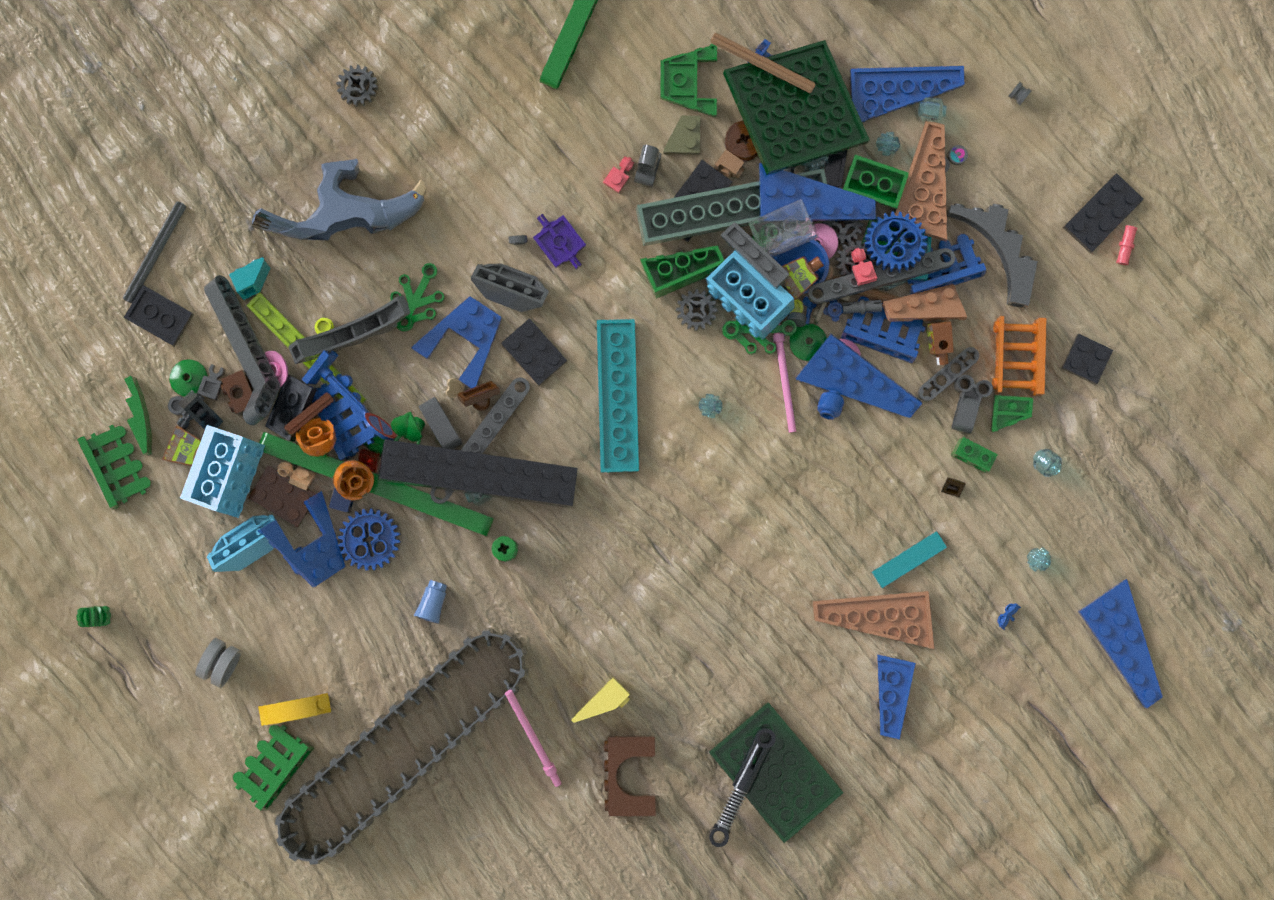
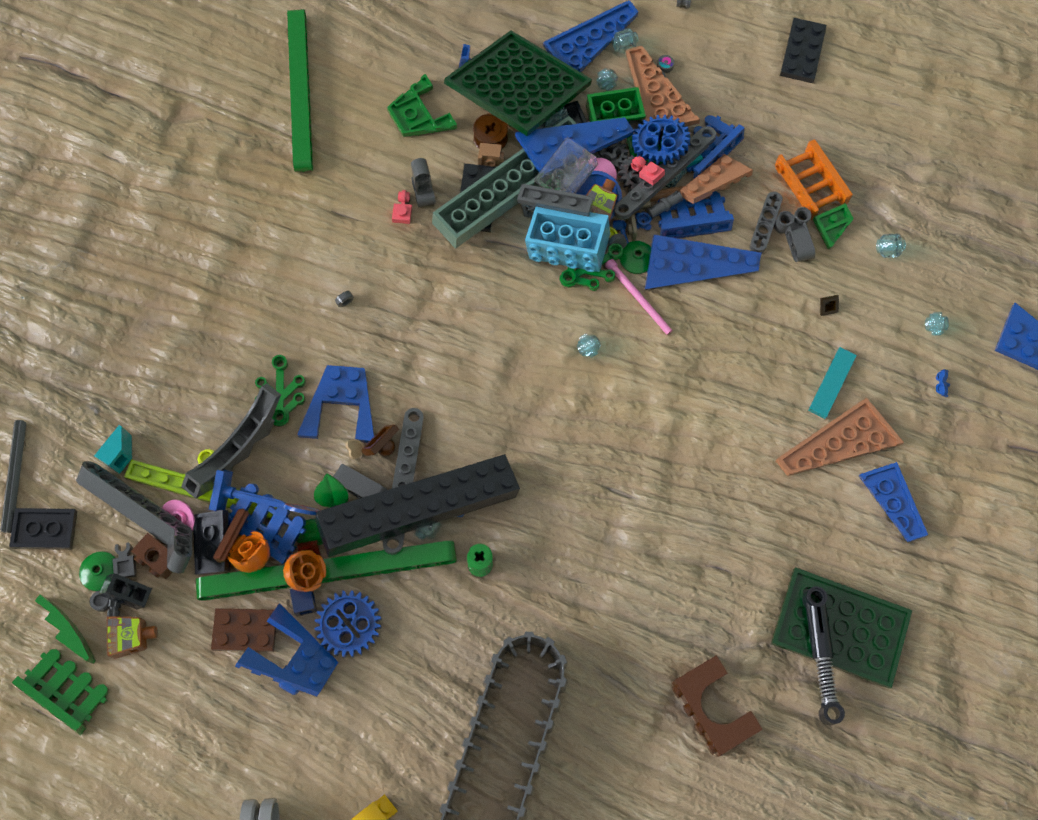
camera: 30 degrees left, 15 degrees down
(222, 471) = (173, 633): medium azure brick -> none
(241, 545) = (227, 696): medium azure wedge -> none
(300, 477) = (251, 603): light nougat plate -> none
(343, 211) = (169, 349): sand blue animal -> none
(362, 80) = (136, 247): dark grey gear -> none
(431, 602) = (439, 649): medium blue plant -> none
(509, 286) = (358, 339): dark grey wedge -> none
(534, 352) = (409, 383): black plate -> none
(549, 767) = (636, 741): bright pink bar -> none
(559, 241) = (381, 283): dark purple plate -> none
(606, 699) = (653, 641): light yellow slope -> none
(617, 396) = (504, 381): teal plate -> none
(680, 269) = (497, 252): green wedge -> none
(685, 137) = (441, 154): olive wing -> none
(690, 315) = (529, 269): dark grey gear -> none
(762, 62) = (472, 60): medium nougat axle -> none
(830, 405) = (687, 293): blue head -> none
(940, 332) = (743, 197): dark orange torso -> none
(974, 455) = (829, 270): green brick -> none
(991, 224) = (747, 105): dark grey arch -> none
(1087, 359) = (865, 157): black plate -> none
(1126, 245) = (837, 62): coral pin -> none

